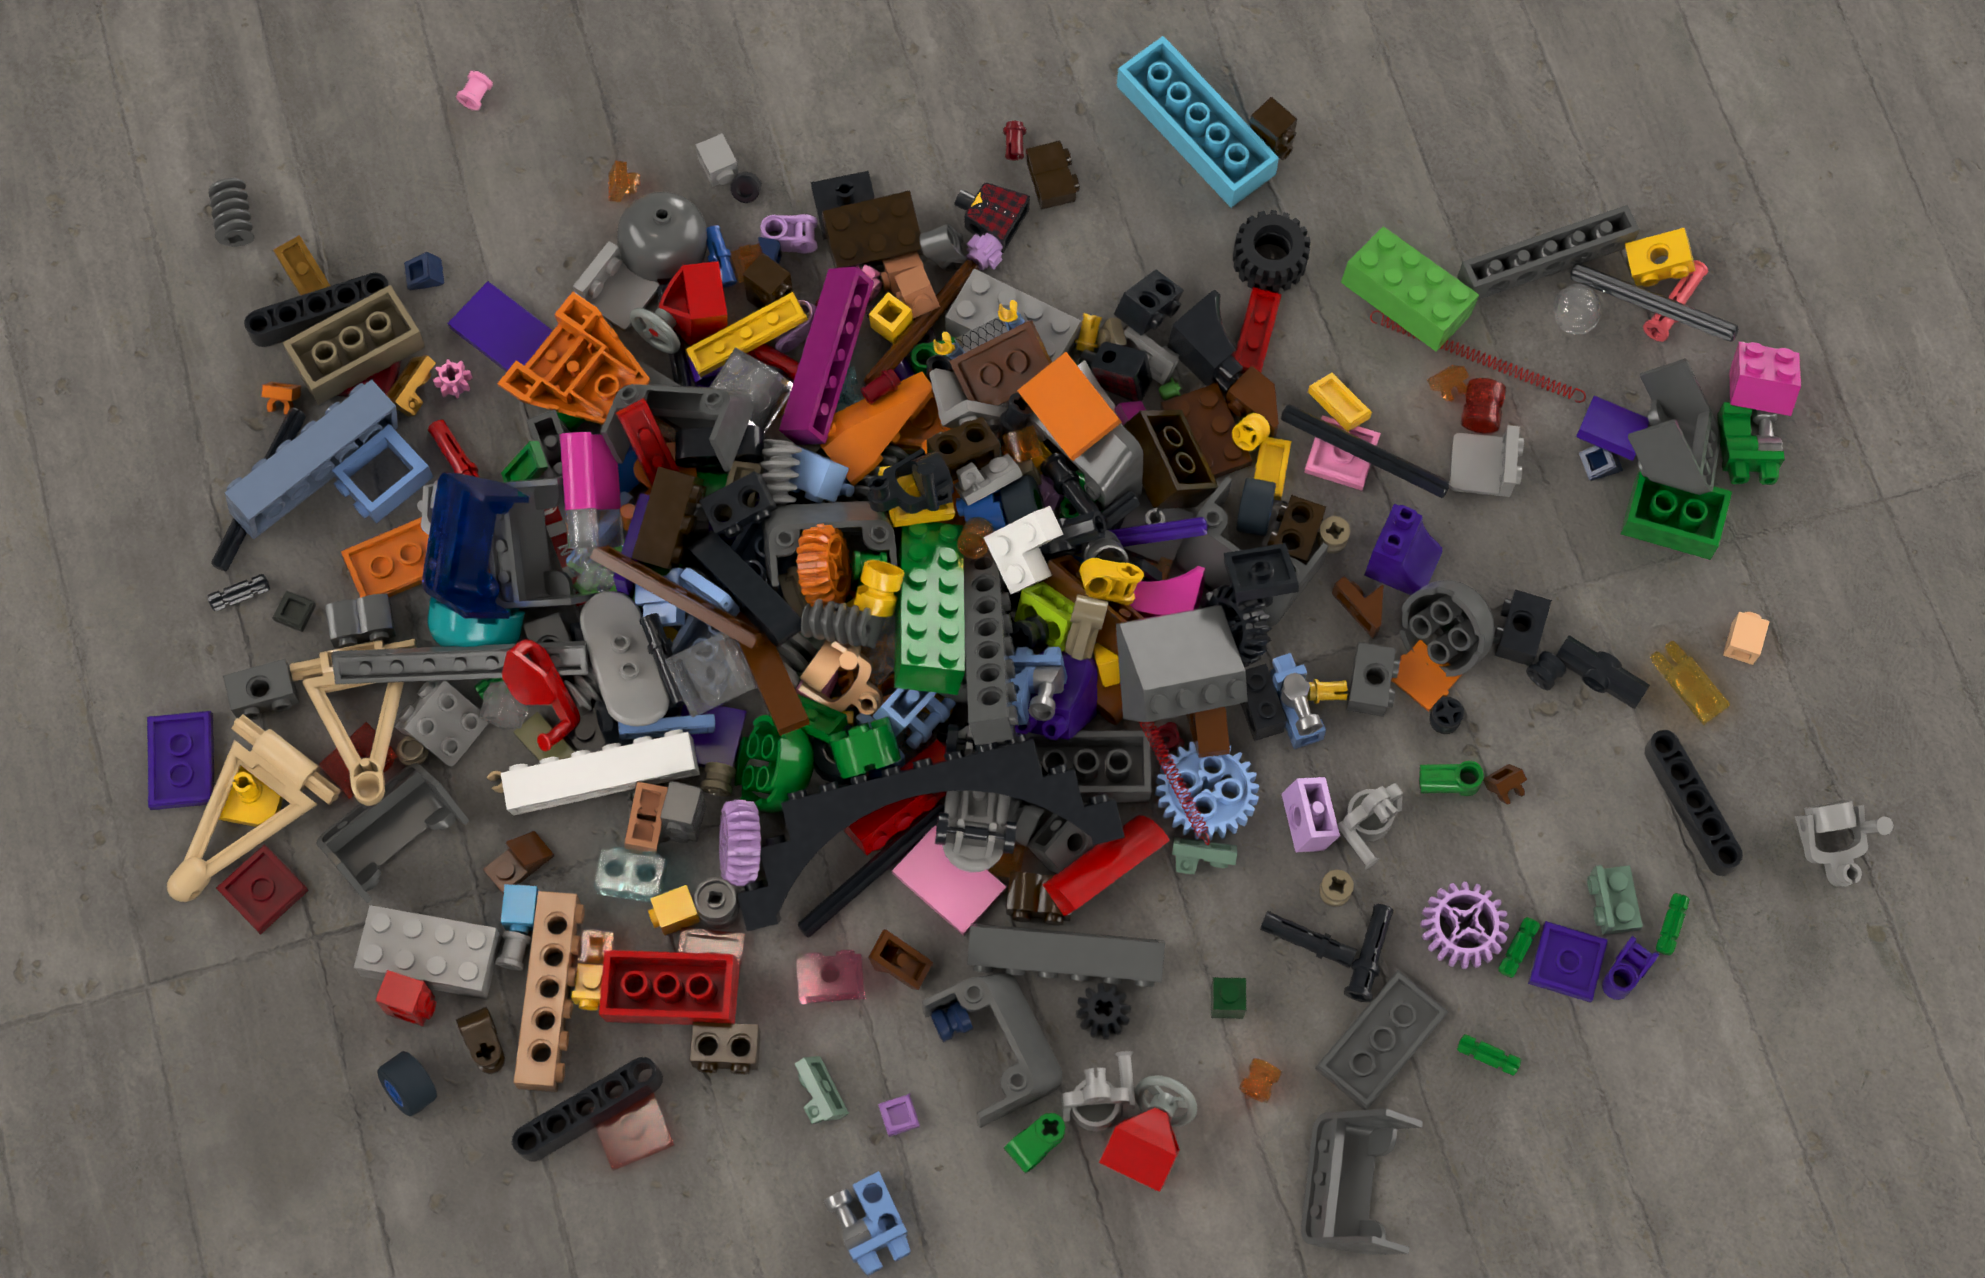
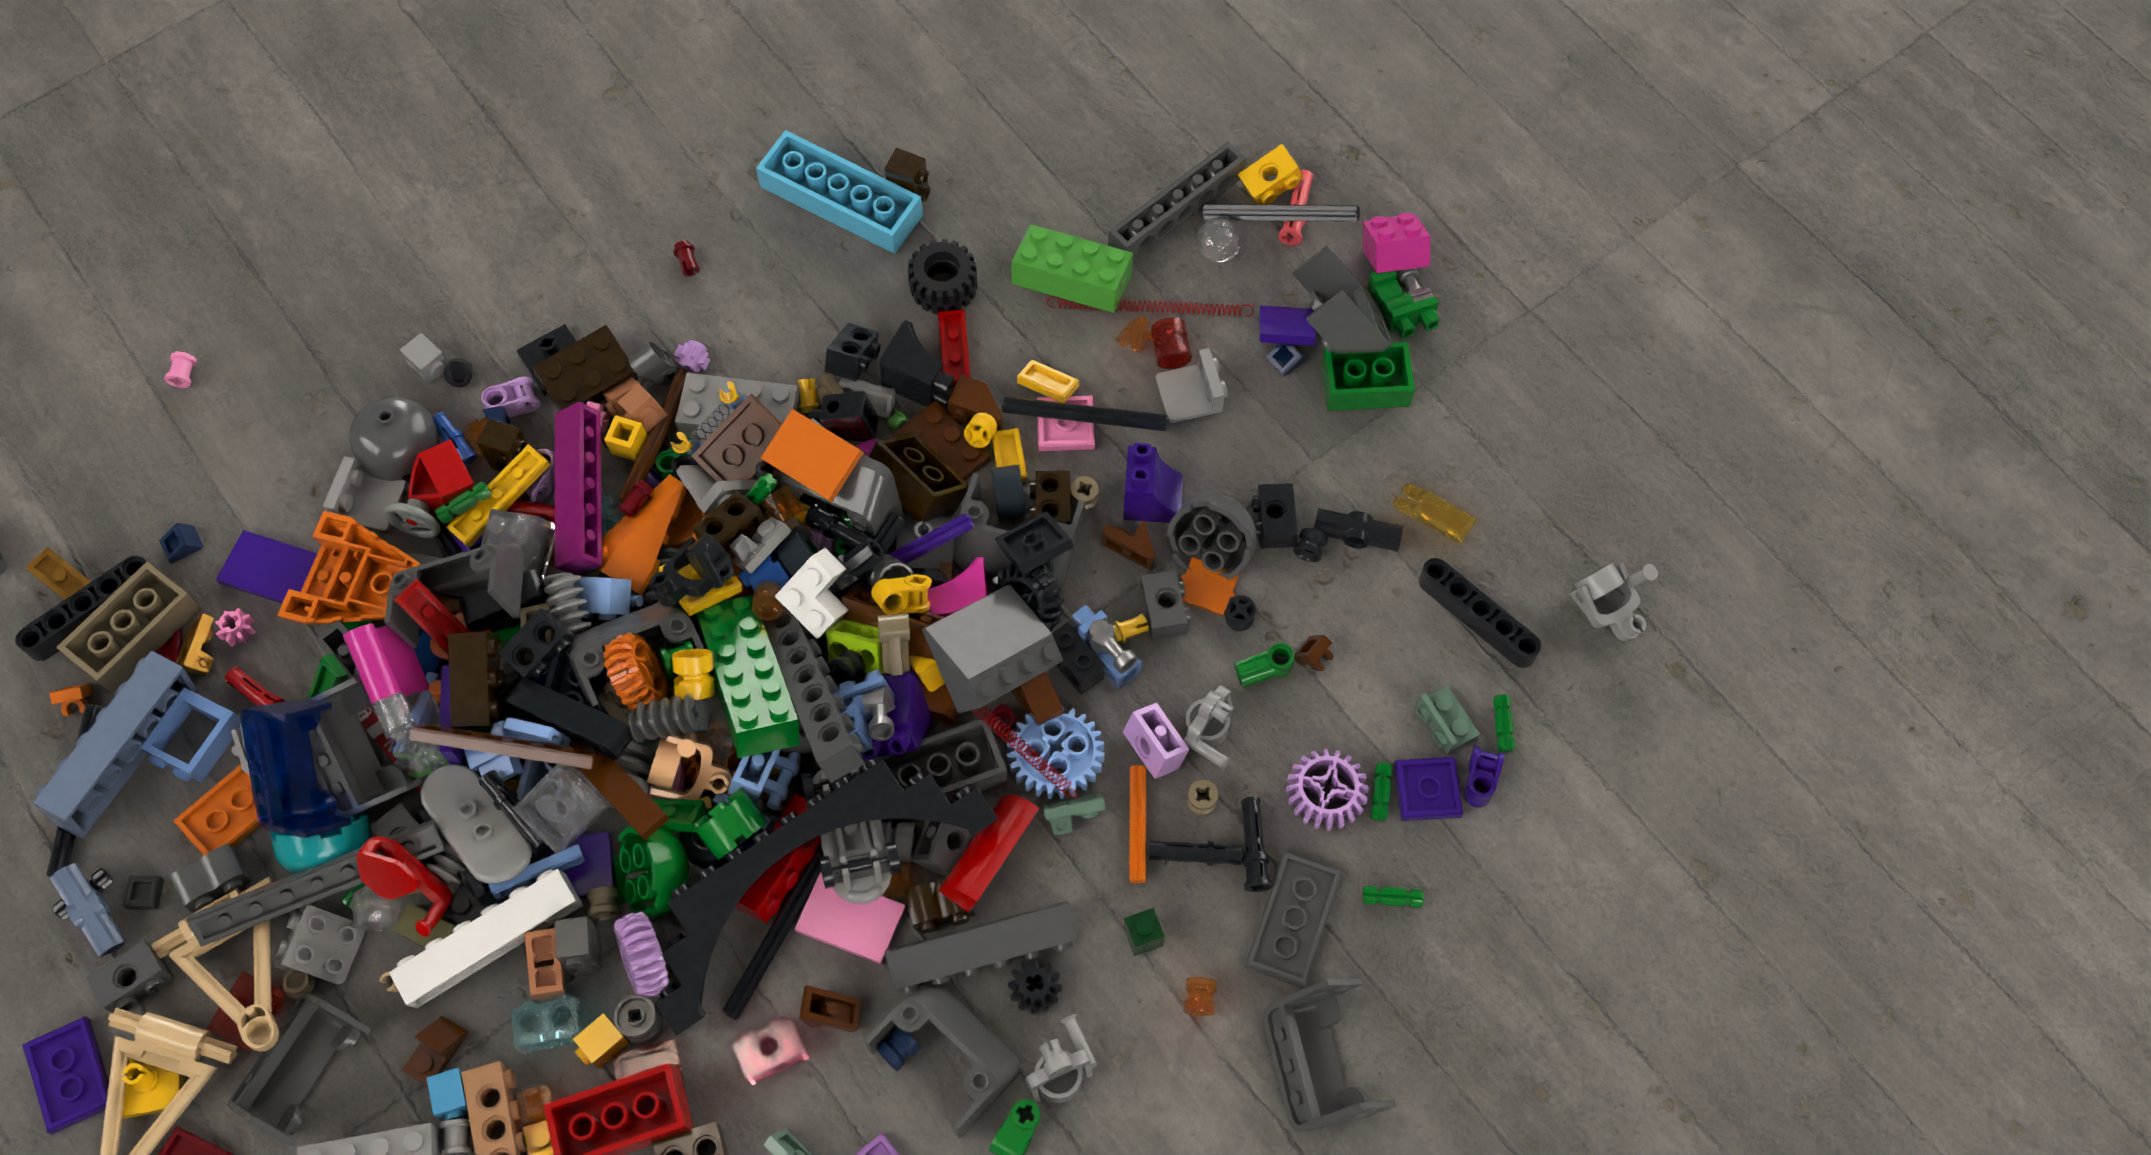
camera: 20 degrees left, 5 degrees down
(241, 610) = (88, 909): none -> sand blue piece
(621, 182) = (342, 404): clear orange tile -> none
(710, 330) = (463, 502): none -> green axle
(994, 211) = (688, 320): torso -> none
(1007, 423) = (761, 489): none -> green axle
(1051, 174) = (728, 275): dark brown brick -> none
(1146, 1143) = (1118, 1095): red piece -> none
(1262, 890) = (1137, 825): none -> orange axle
(1746, 637) = (1466, 459): light nougat brick -> none

